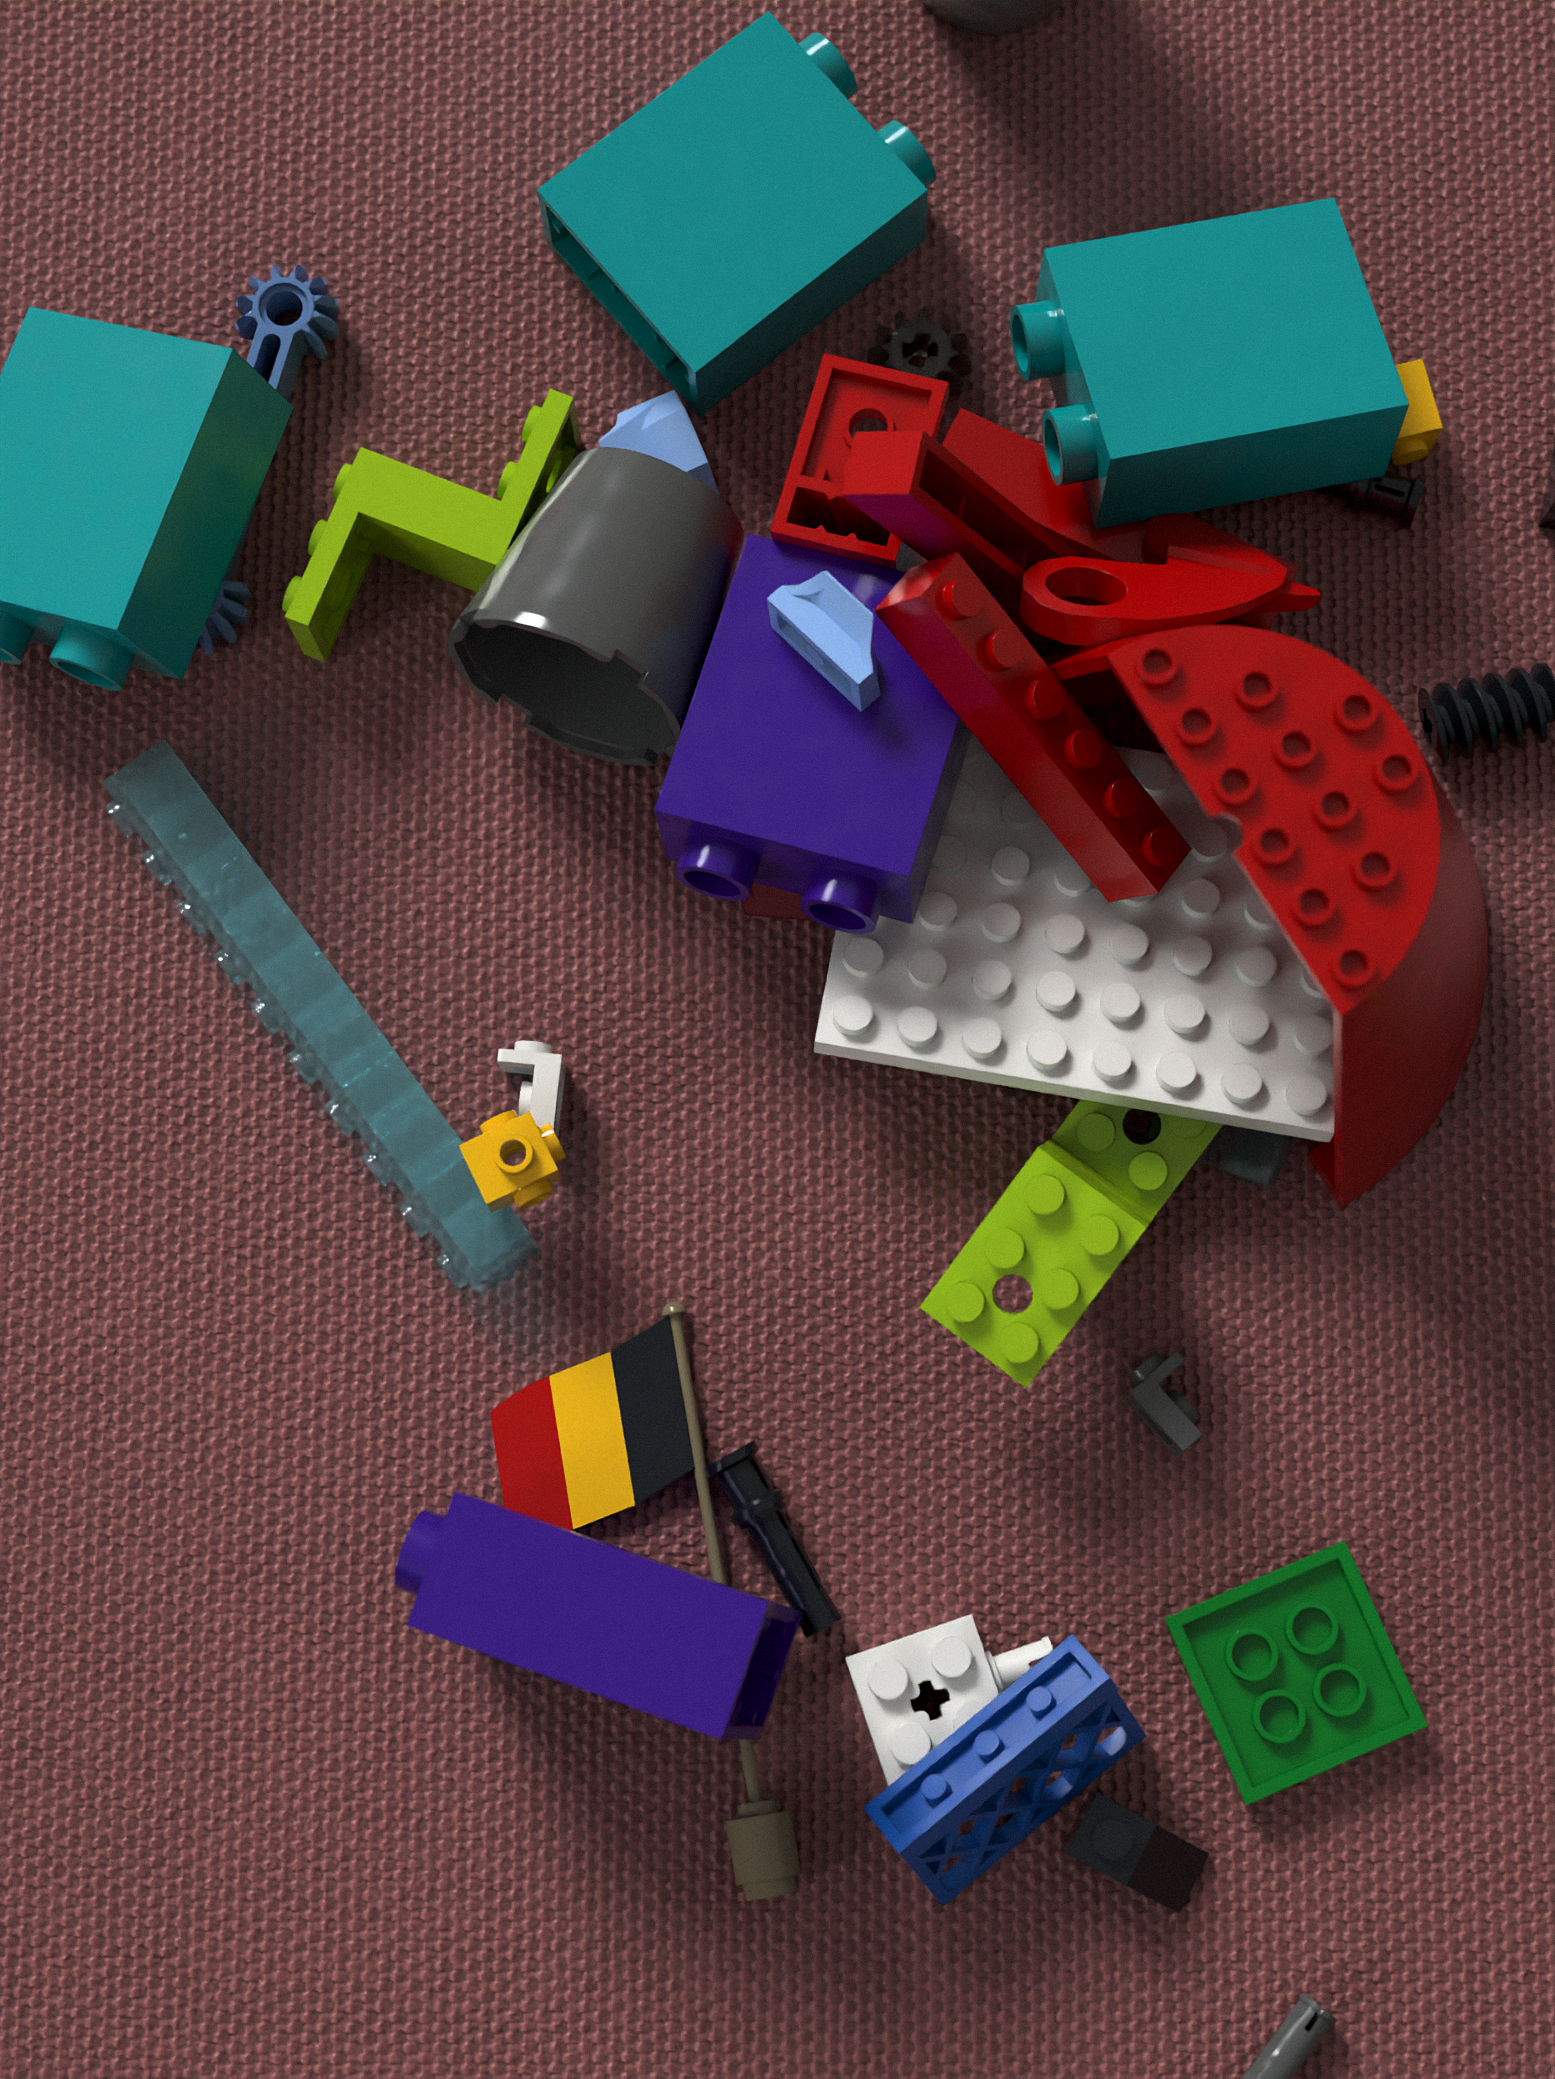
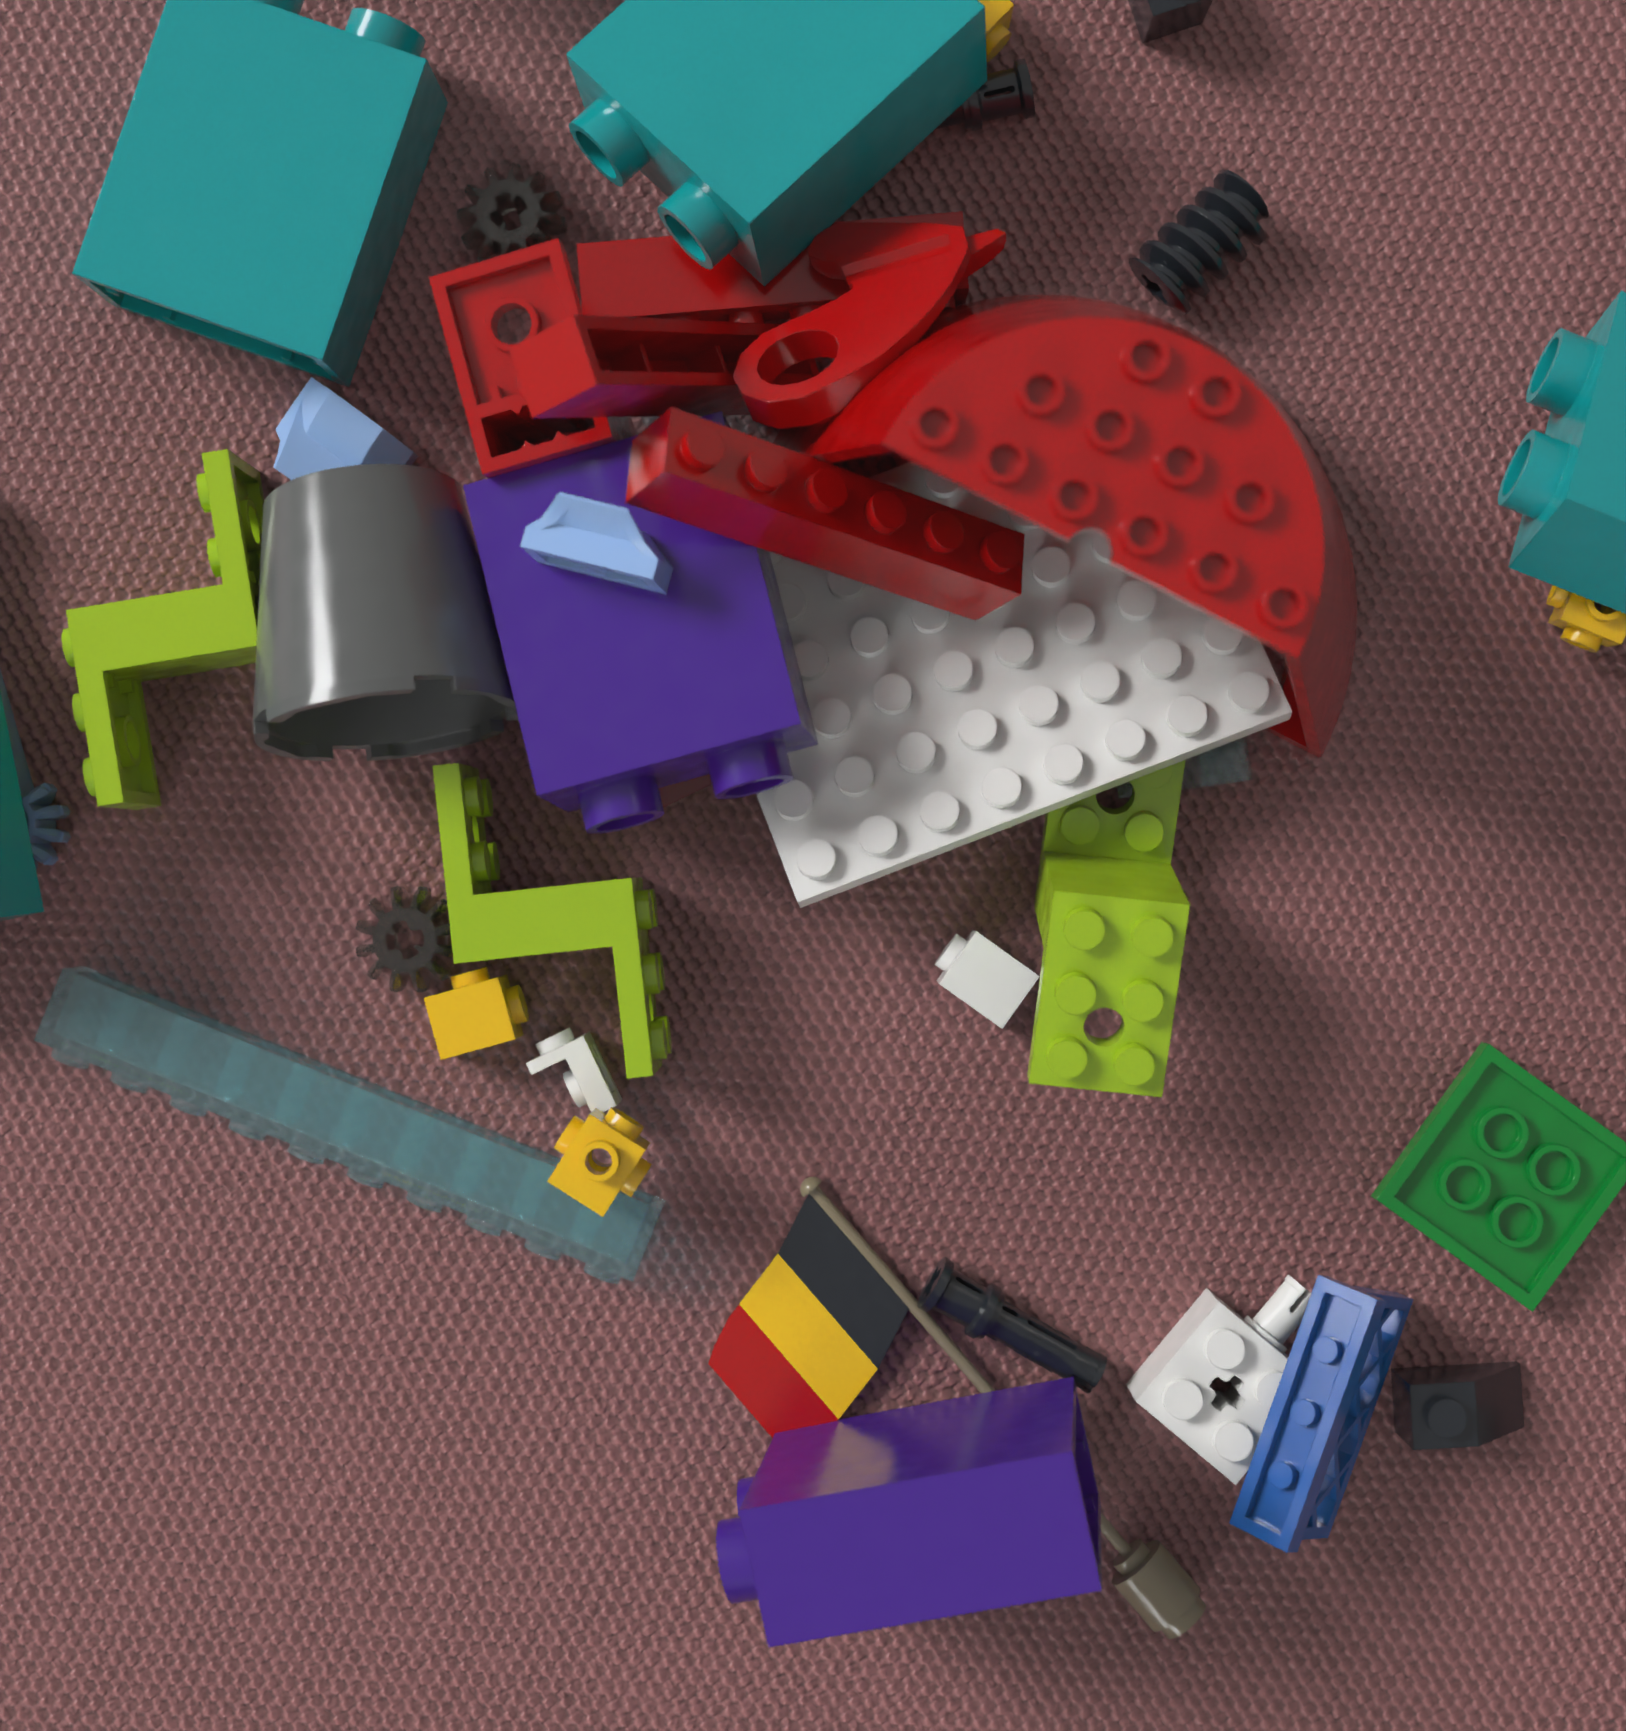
camera: 35 degrees left, 10 degrees up
(452, 871) = (399, 959): none -> clear smoke gear
(481, 986) = (476, 1013): none -> yellow brick
(597, 939) = (548, 918): none -> lime bracket
(934, 1215) = (984, 976): none -> white brick
(1165, 1414) = (1280, 1024): dark grey bracket -> none

